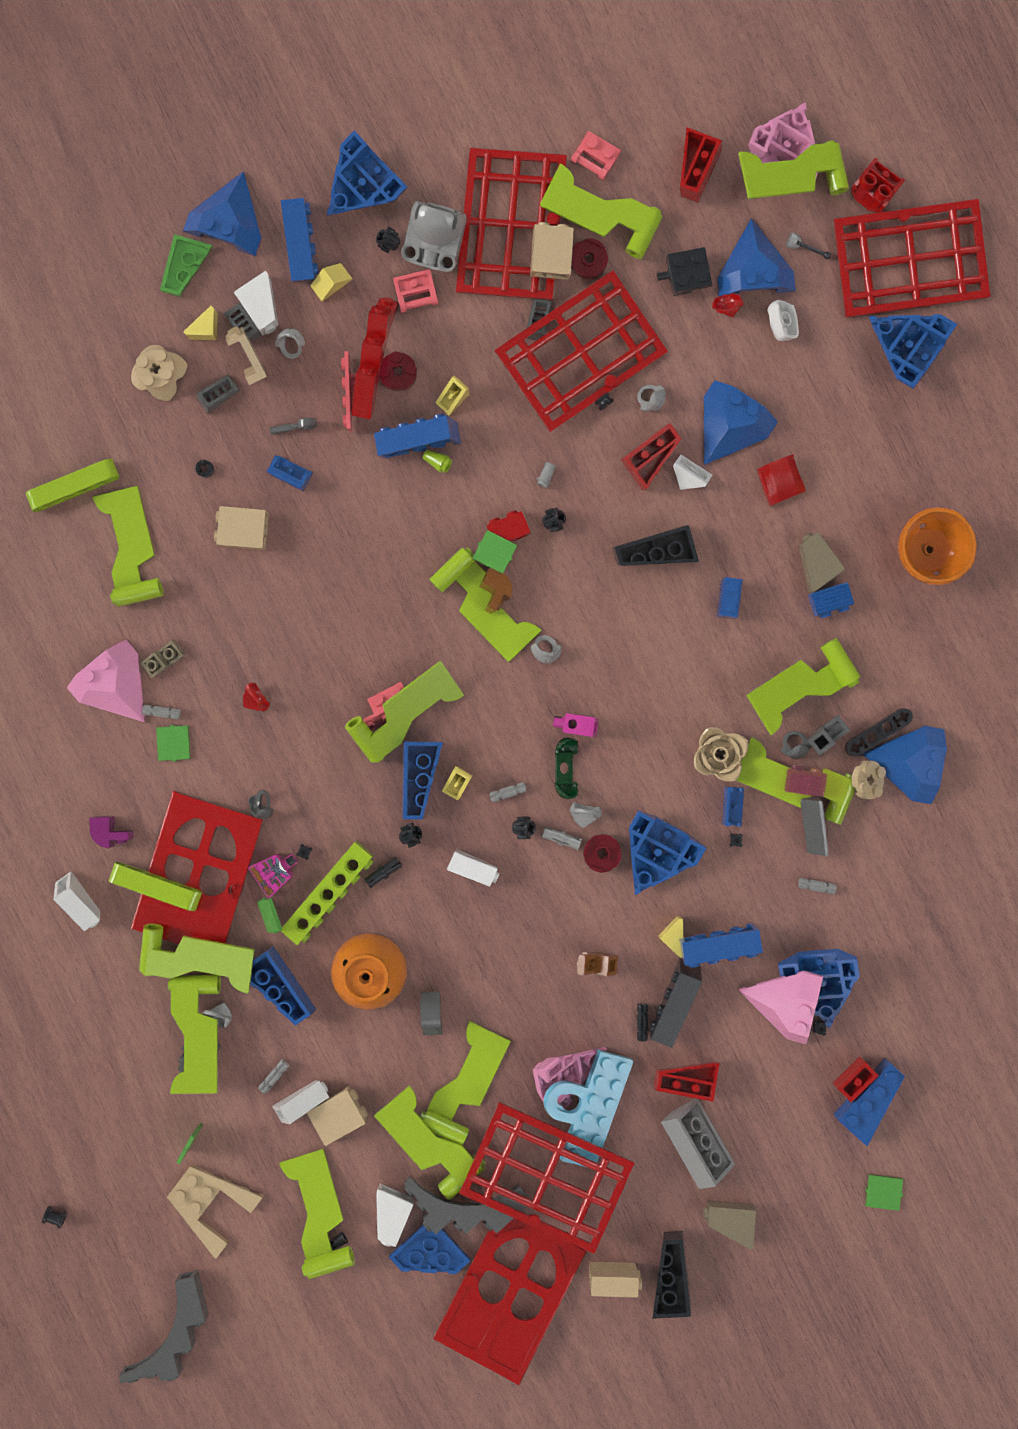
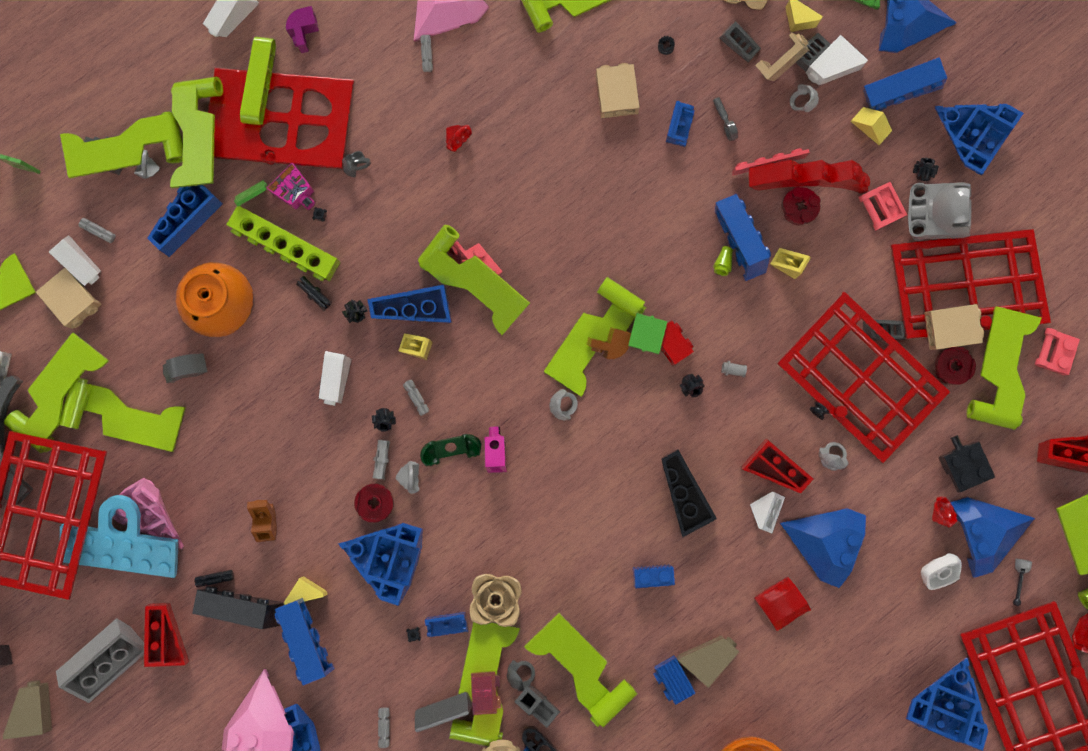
camera: 80 degrees right, 5 degrees down
(163, 659) = (476, 44): dark tan slope -> none
(173, 743) = (399, 70): bright green piece -> none

